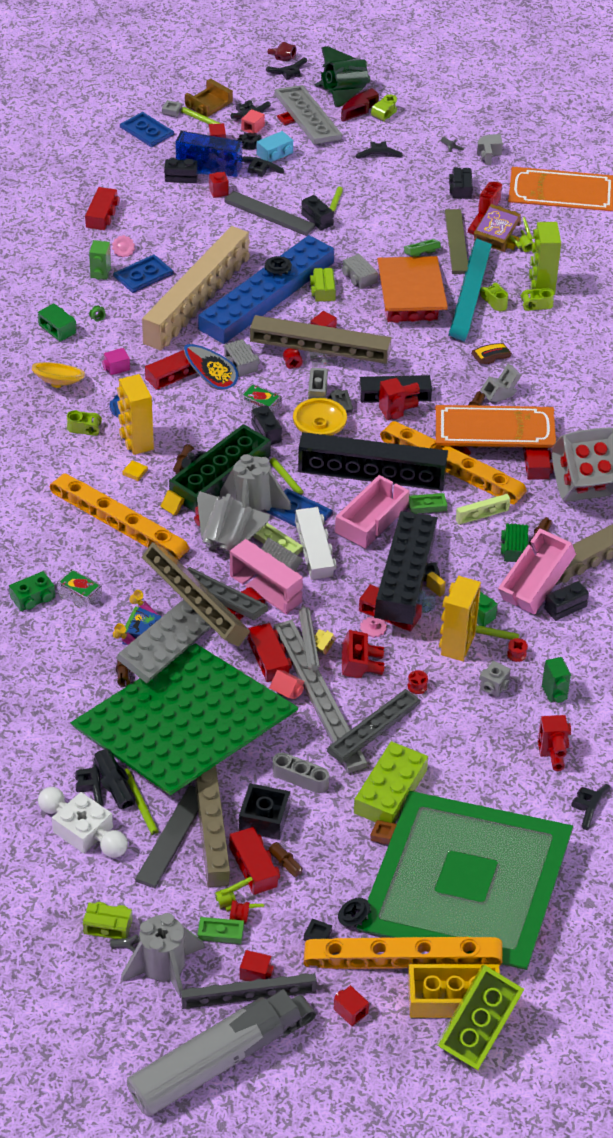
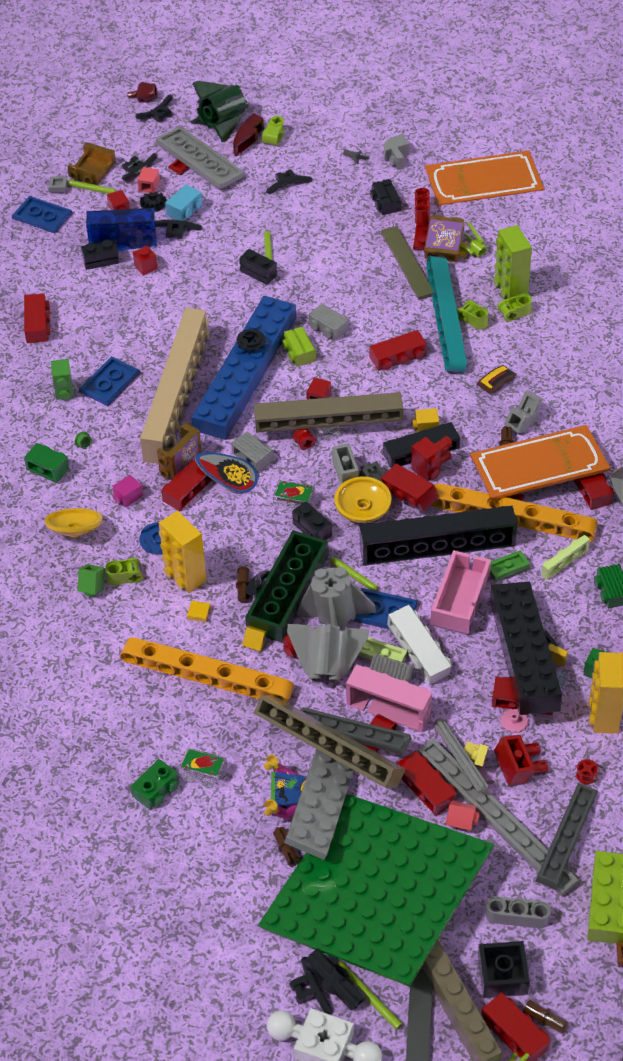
camera: 15 degrees left, 5 degrees up
(51, 421) = (91, 579): none -> bright green brick
(123, 246) = (77, 355): bright pink piece -> none
(174, 340) = (183, 452): none -> pearl gold panel
(269, 213) = (208, 278): dark grey tile -> none
(366, 417) = (410, 487): none -> red brick
(409, 367) = (425, 419): none -> yellow brick
(411, 283) = (387, 323): orange piece -> none
(426, 246) = (377, 278): bright green plate -> none

